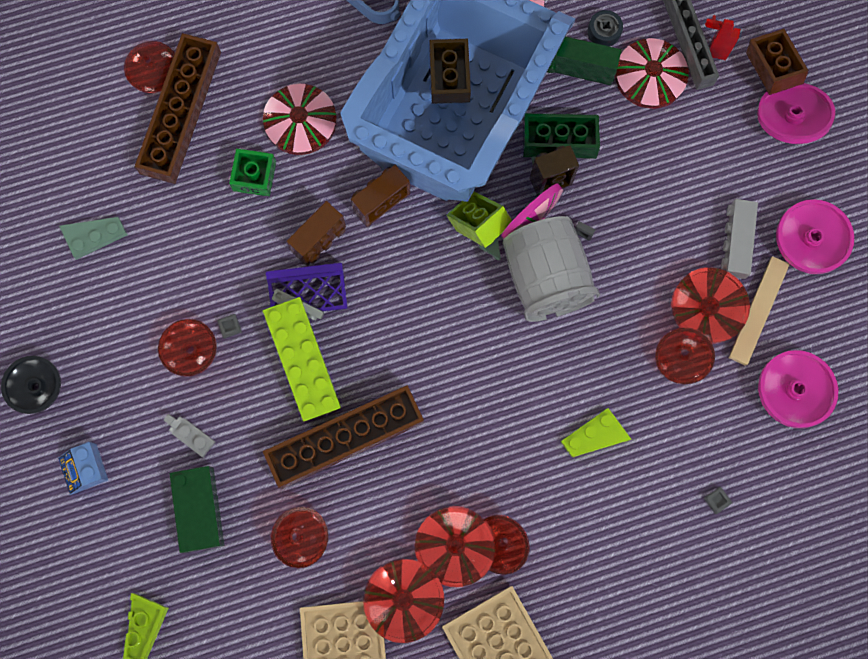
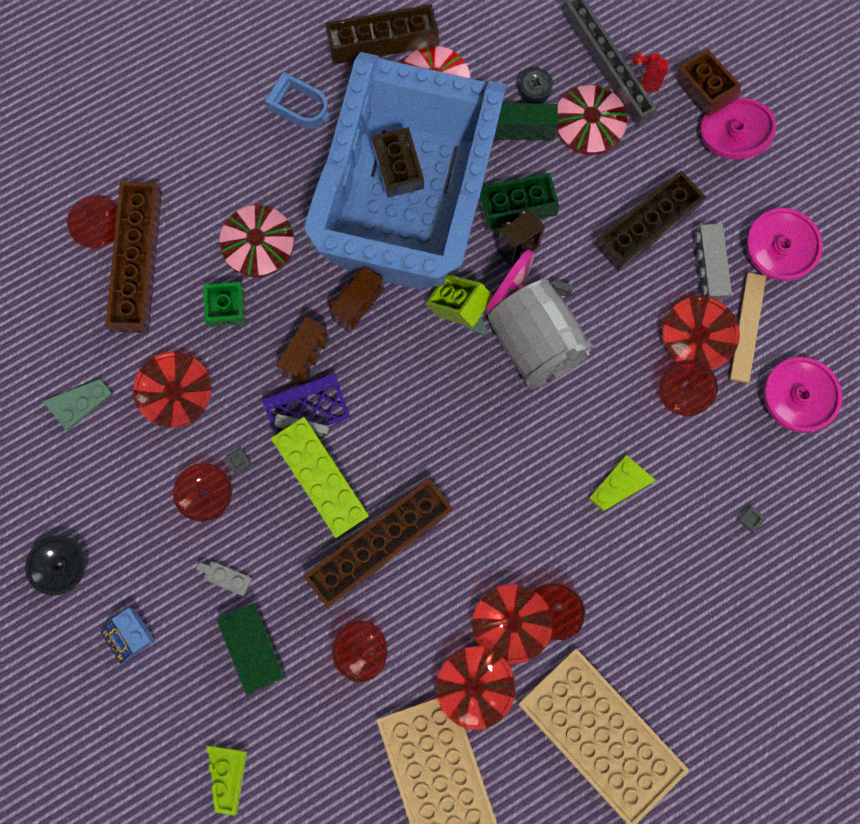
camera: 15 degrees left, 0 degrees up
(183, 242) = (172, 390): none -> clear red dish
(686, 183) = (650, 221): none -> dark brown brick

